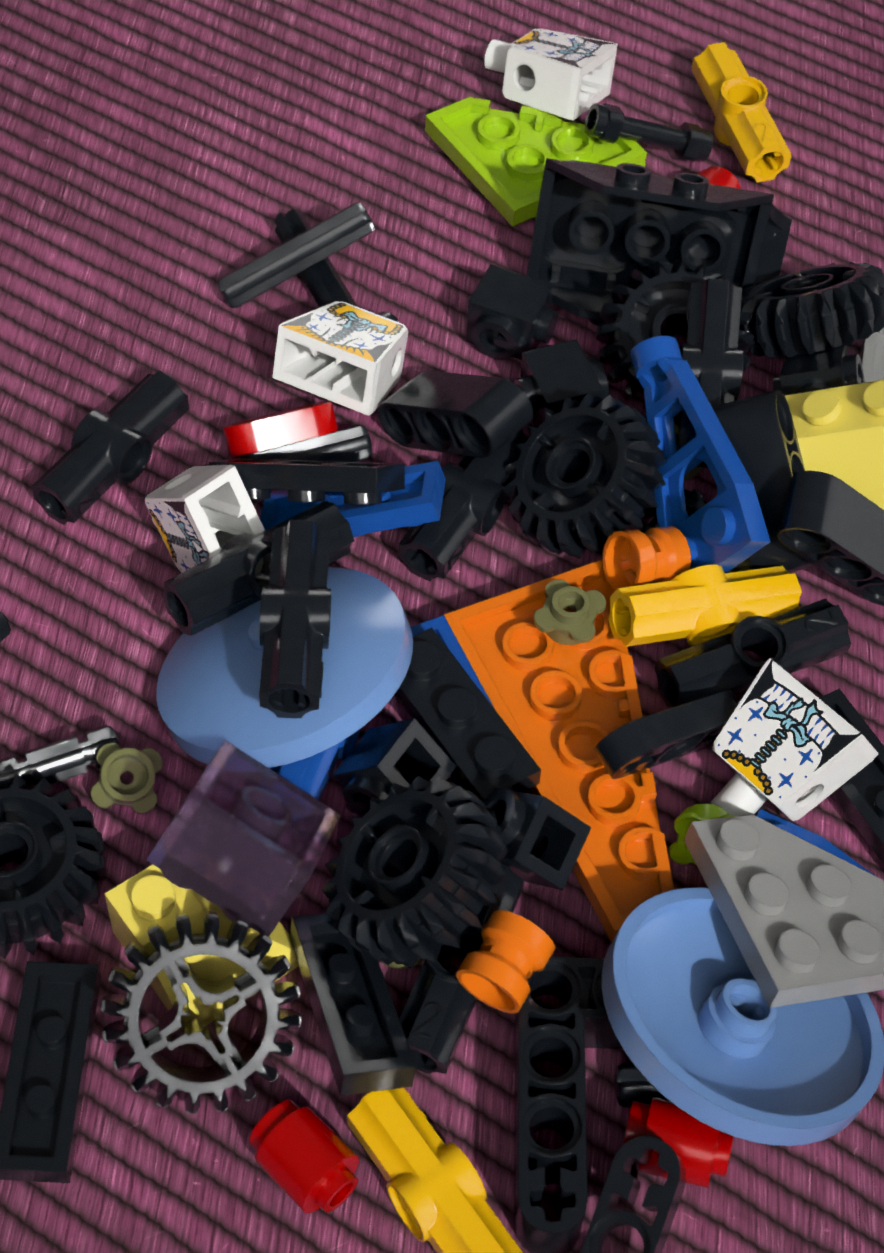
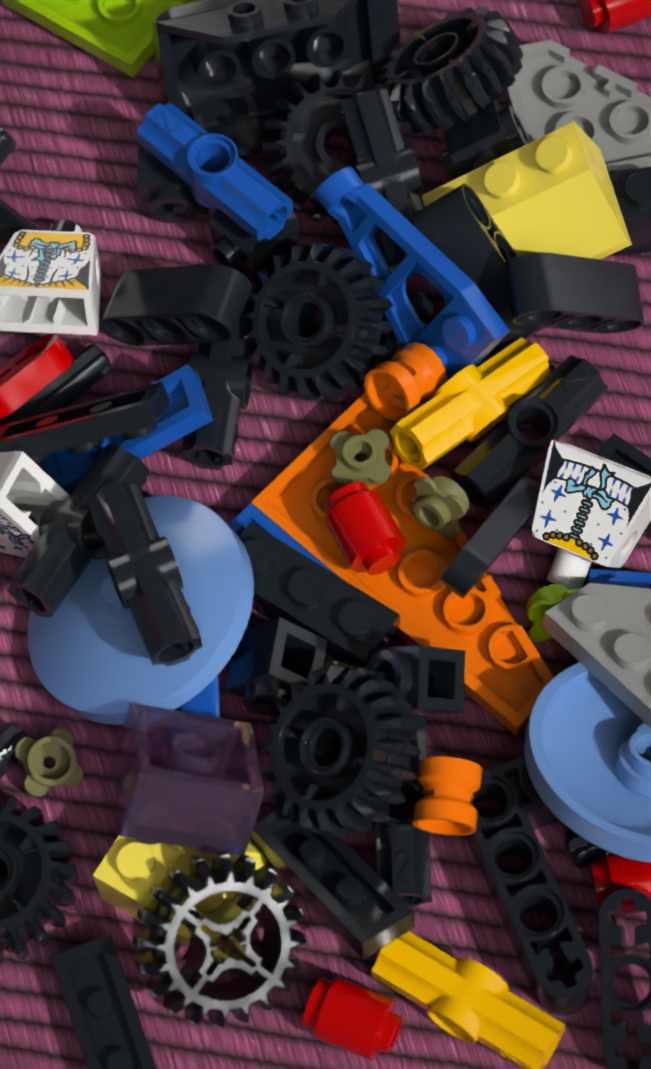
camera: 15 degrees left, 10 degrees up
(541, 675) = (363, 529): none -> red brick
(545, 309) = (234, 189): none -> blue piece
(629, 682) = (439, 505): none -> olive plate

